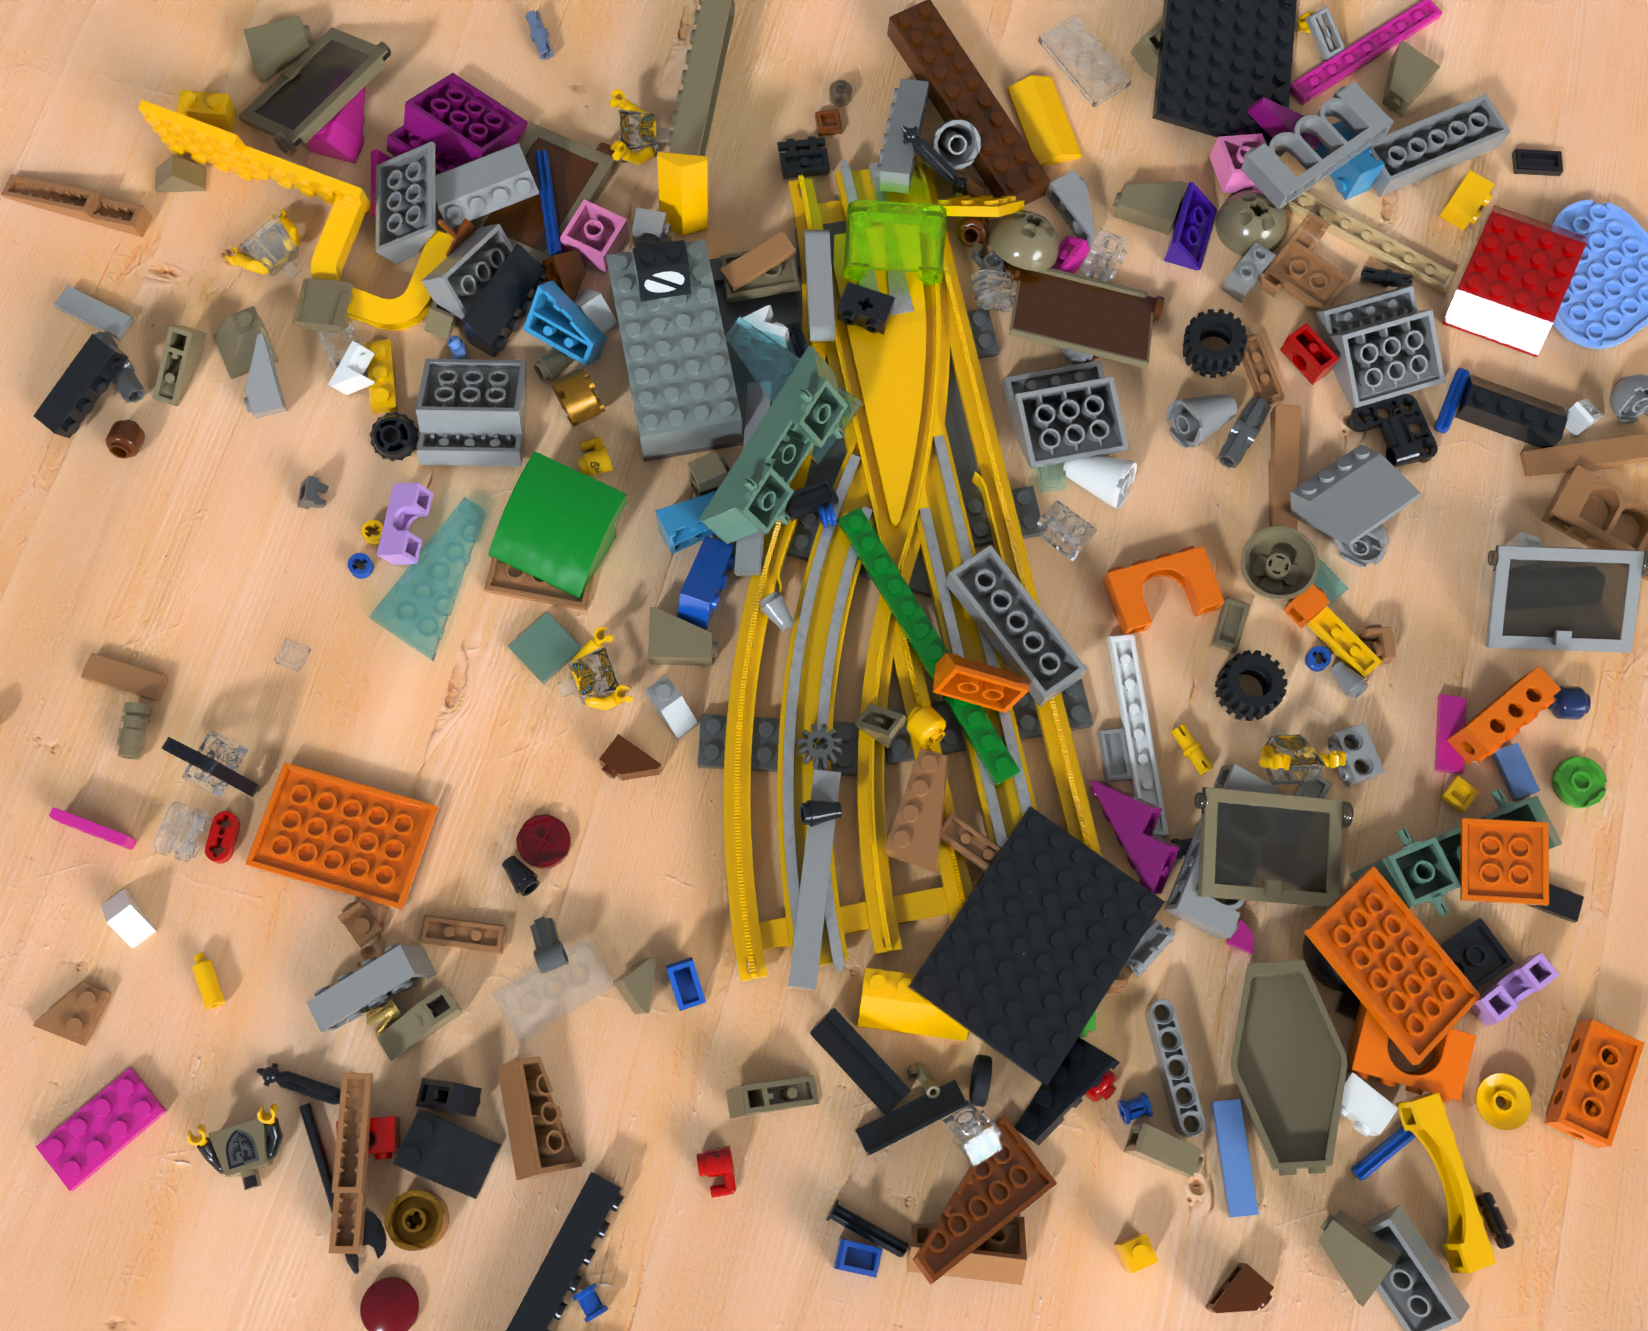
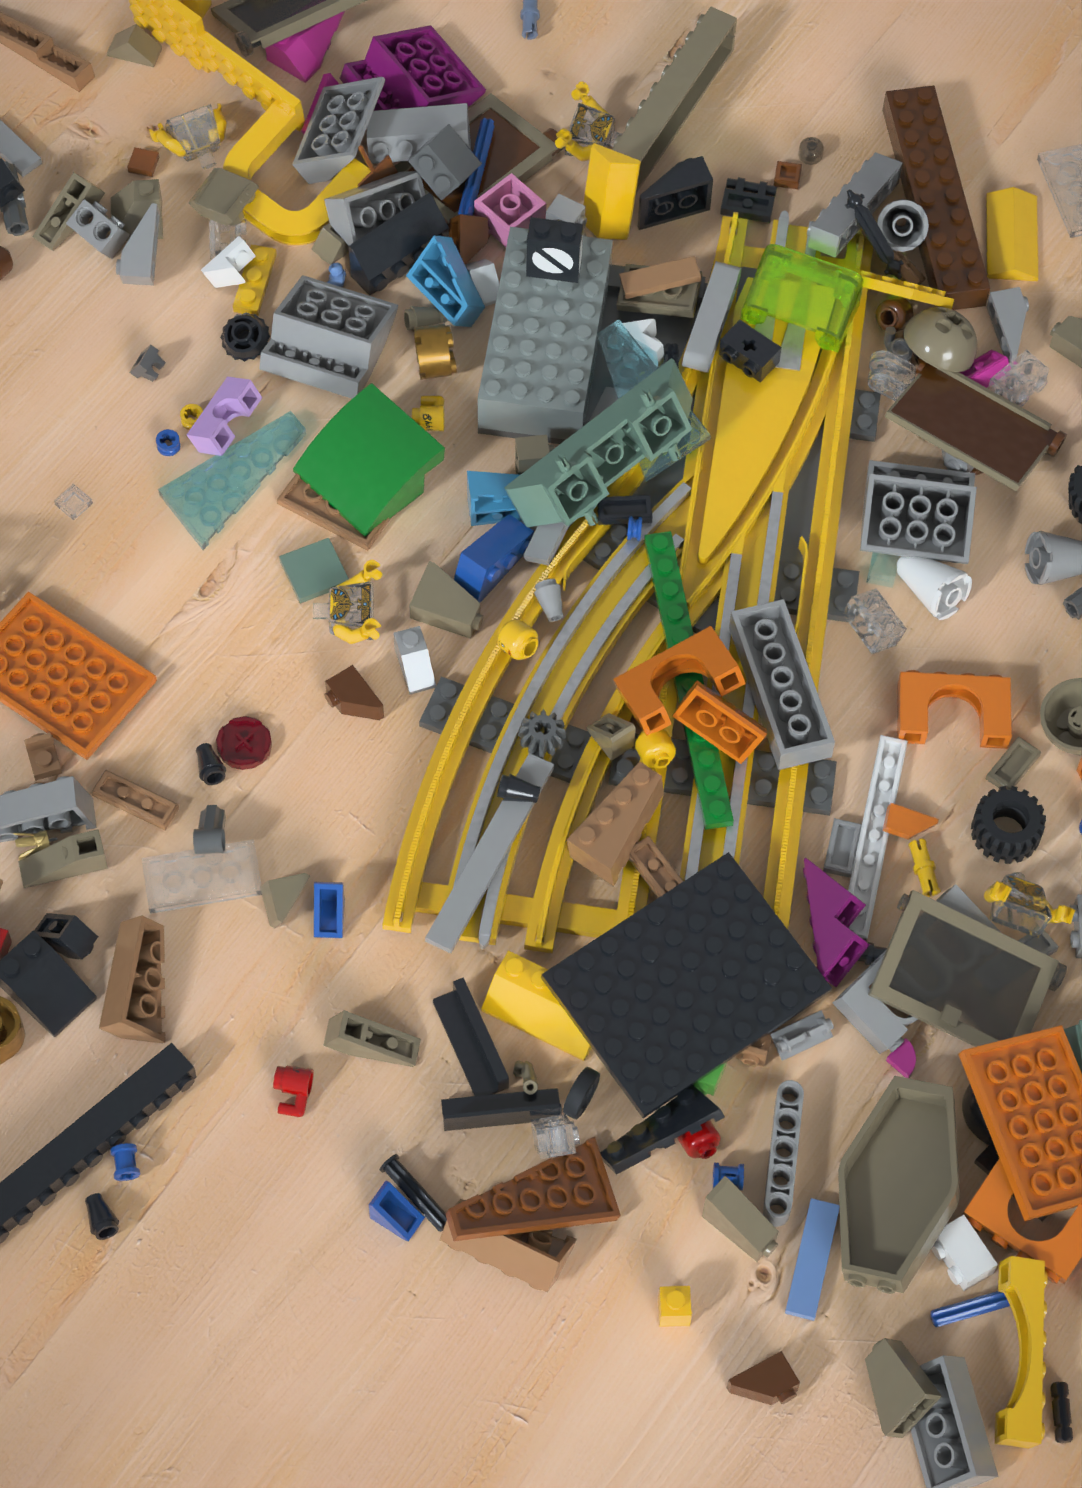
camera: 25 degrees right, 10 degrees down
(212, 376) = (96, 231): none -> light grey brick
(231, 290) = (143, 162): none -> dark orange tile
(519, 208) = (444, 162): none -> dark grey slope
(742, 172) = (677, 194): none -> black slope
(763, 661) = (517, 639): none -> yellow head
(936, 623) = (699, 654): none -> orange arch
(1162, 712) = (906, 822): none -> orange tile

